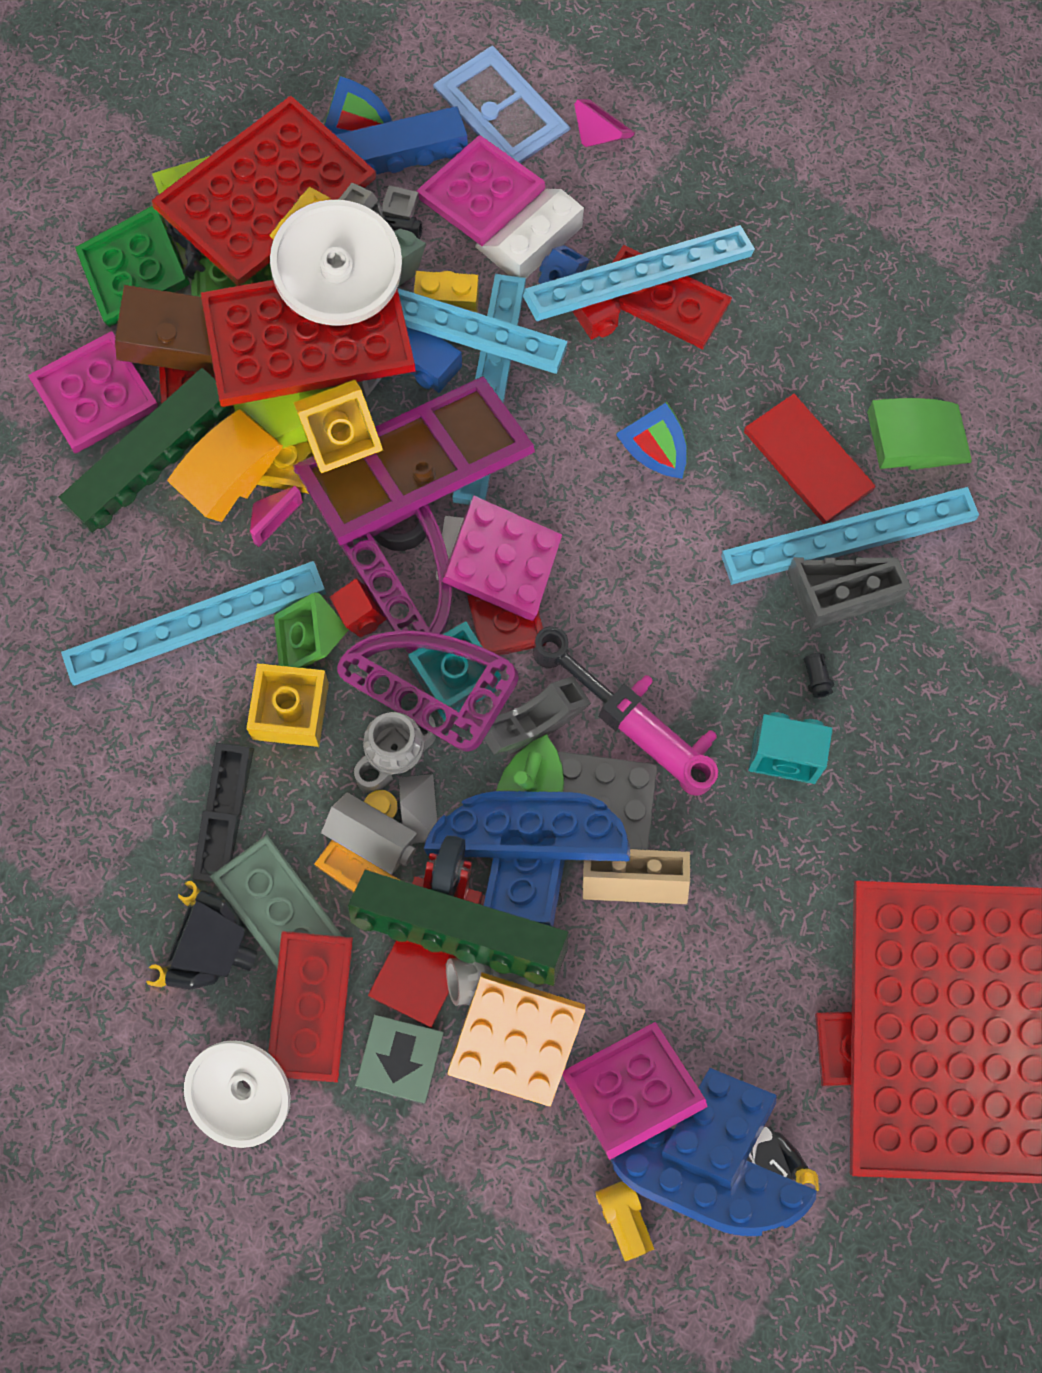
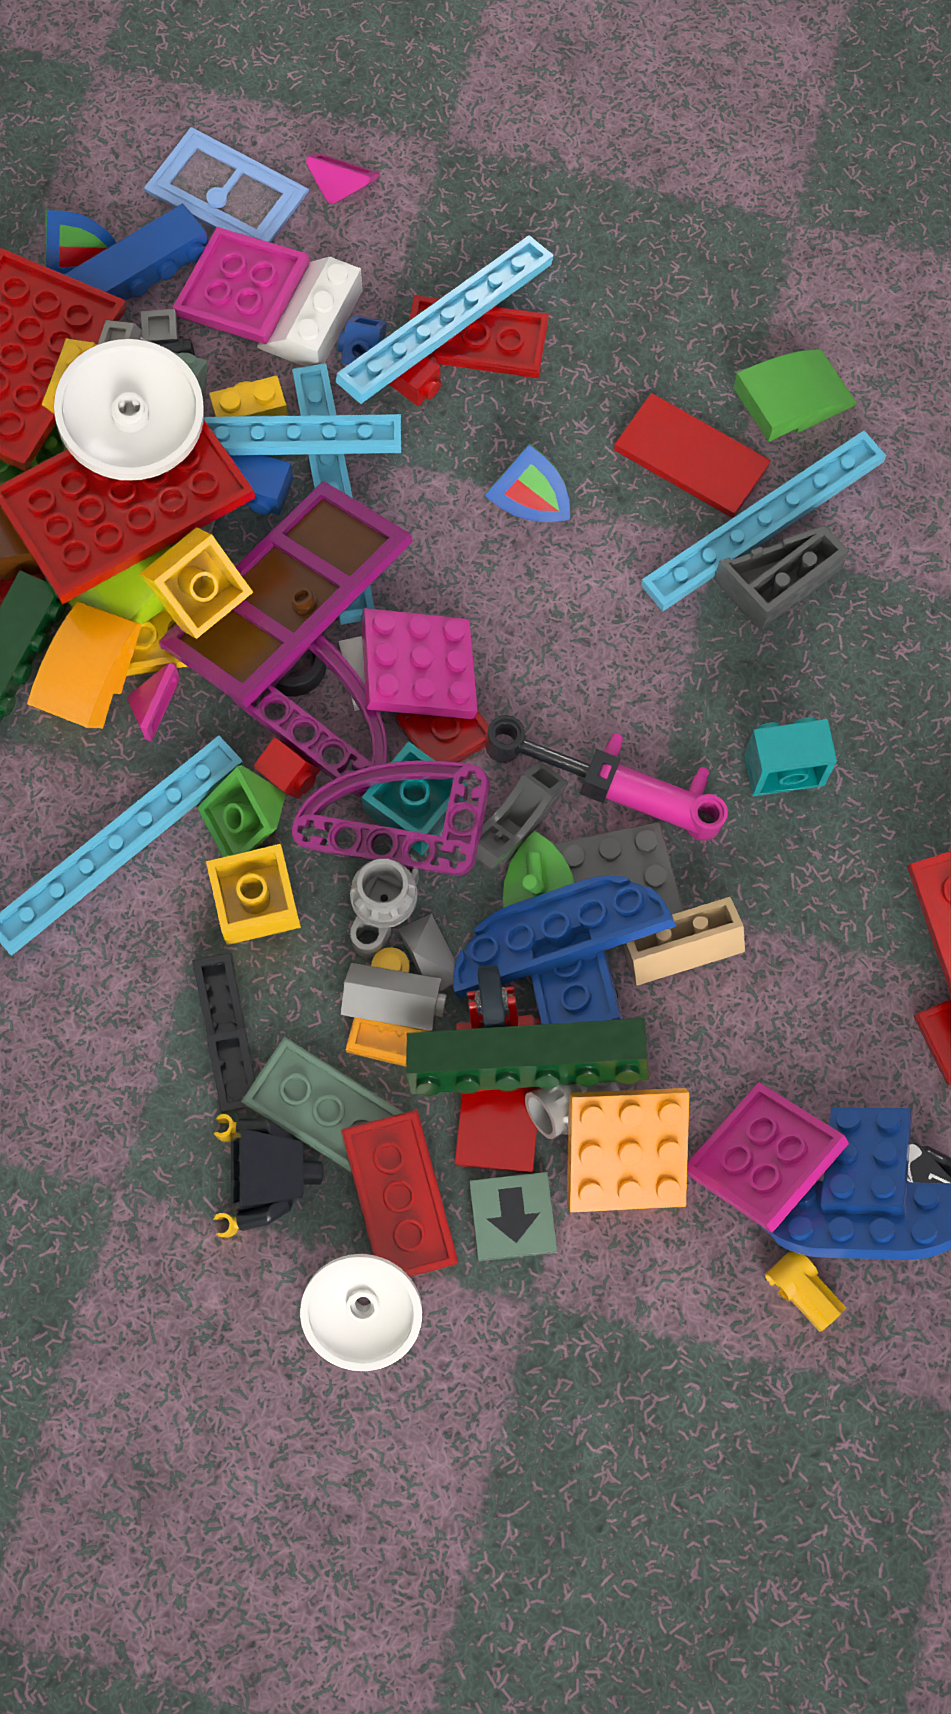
camera: 20 degrees left, 0 degrees up
(818, 675) = (791, 679): black pin -> none

